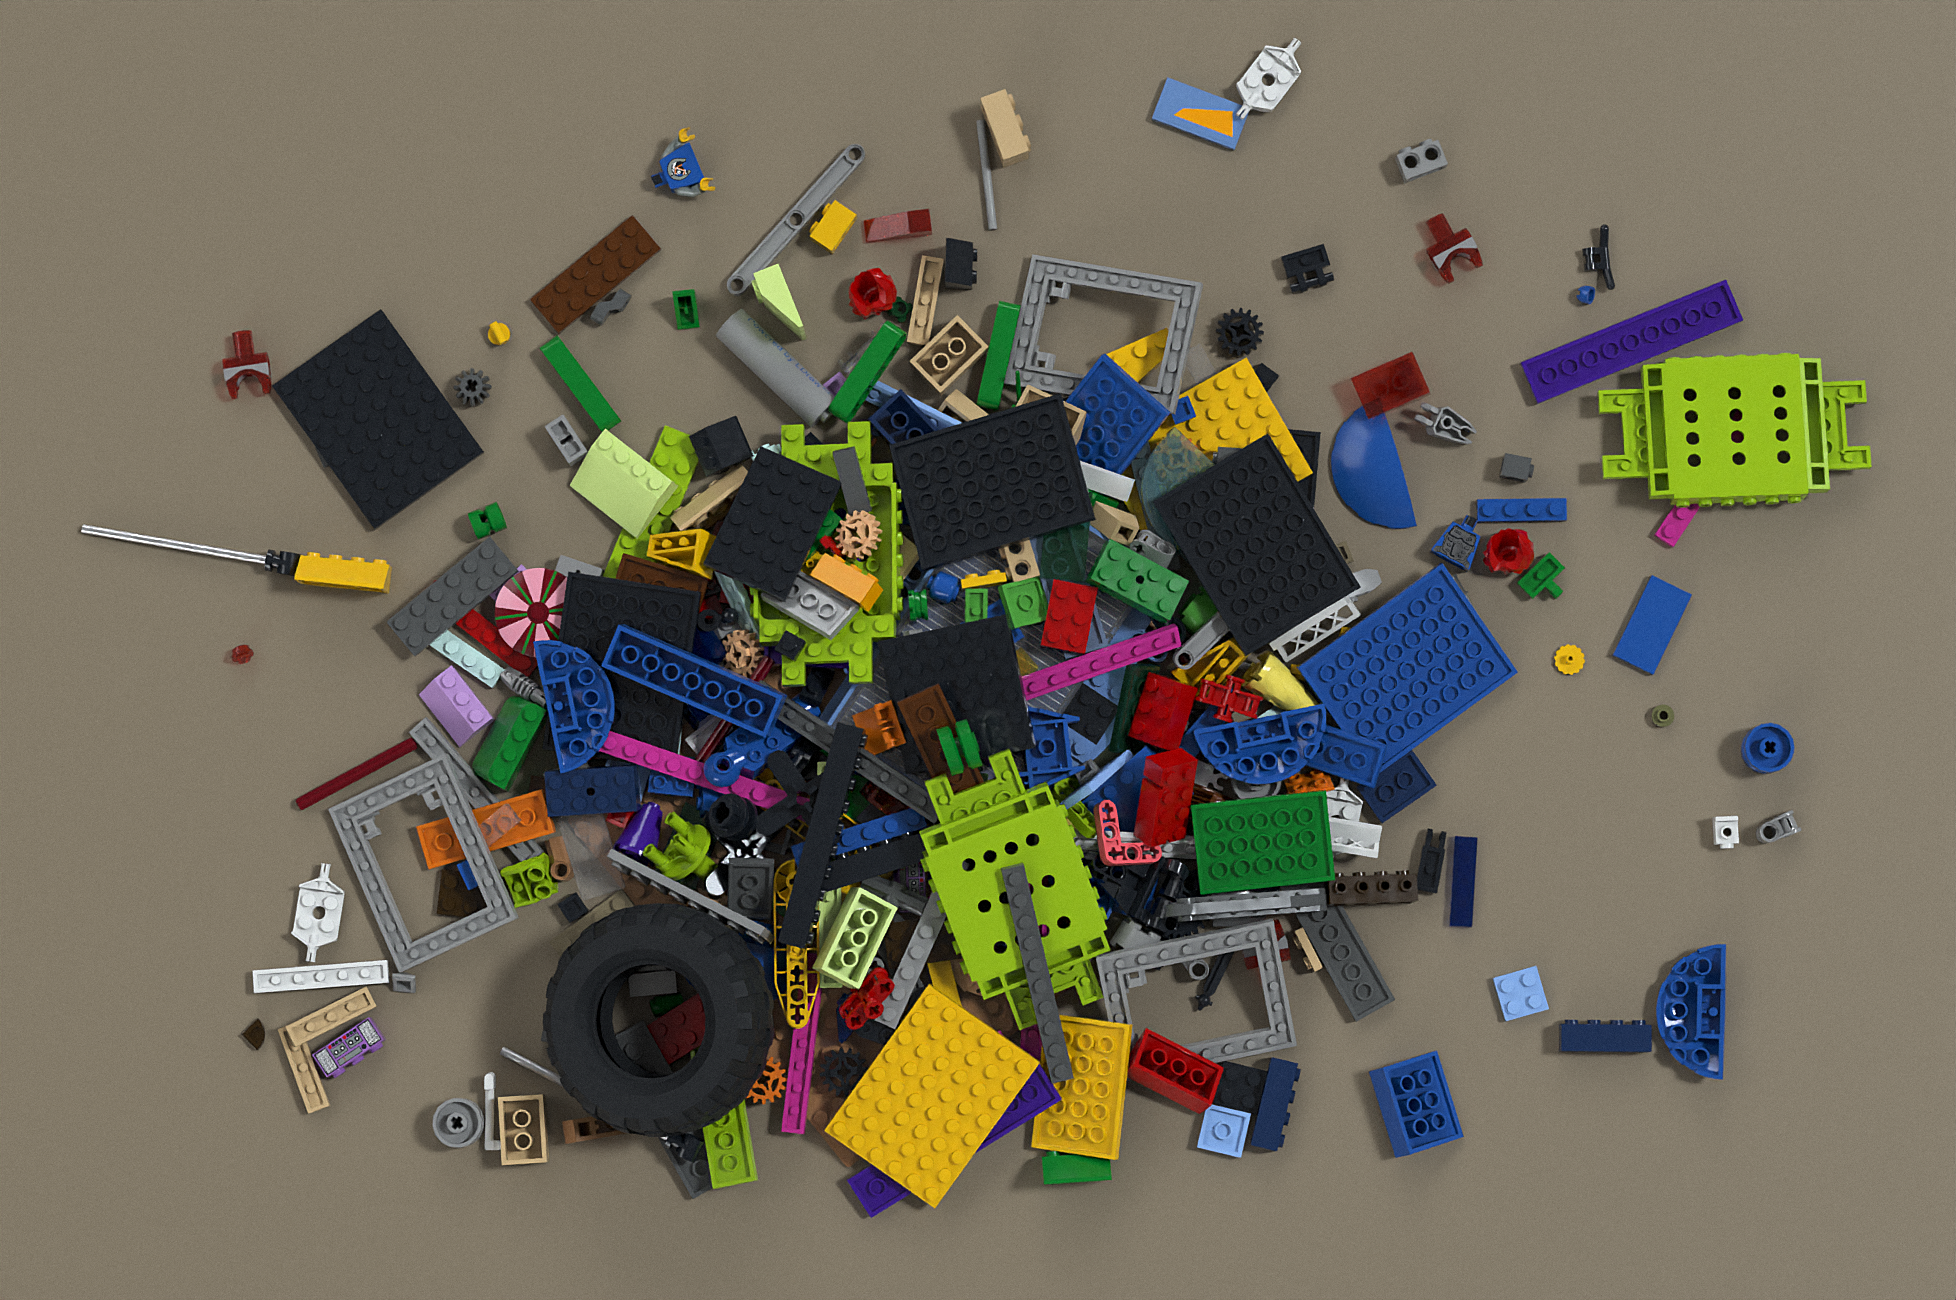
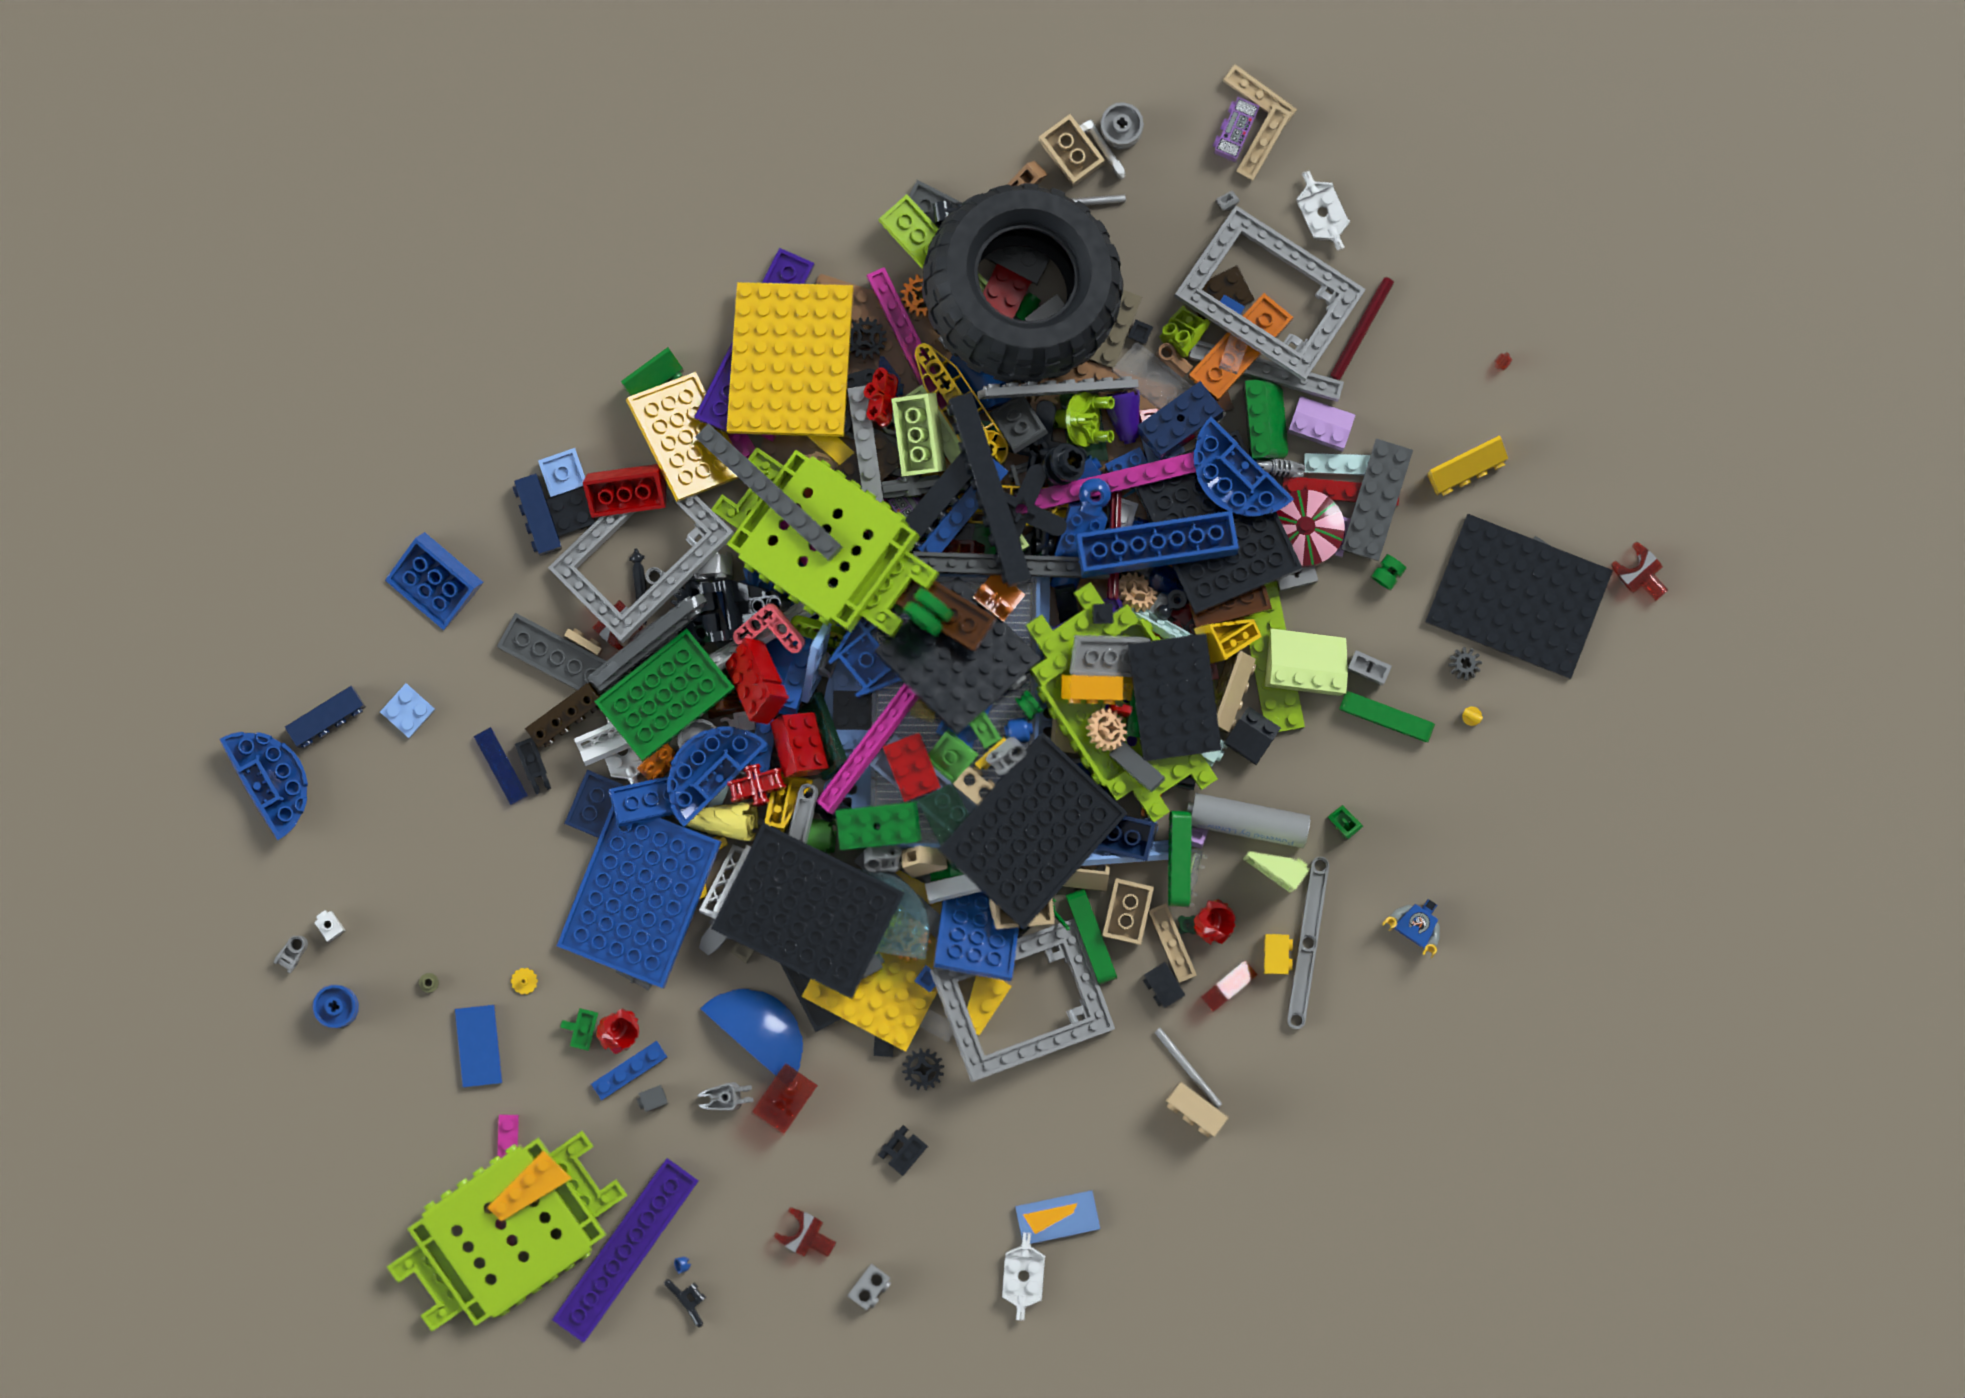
camera: 145 degrees right, 0 degrees up
(255, 1034) = (1310, 96): dark brown tile -> none
(285, 562) = (1516, 447): flat silver piece -> none
(321, 976) = (1290, 167): white plate -> none
(595, 274) = (1429, 806): reddish brown plate -> none
(604, 309) = (1406, 782): dark grey piece -> none
(968, 568) = (1006, 756): none -> light grey piece
(1458, 544) = (660, 1013): torso -> none
(1686, 454) = (534, 1182): none -> light orange wing

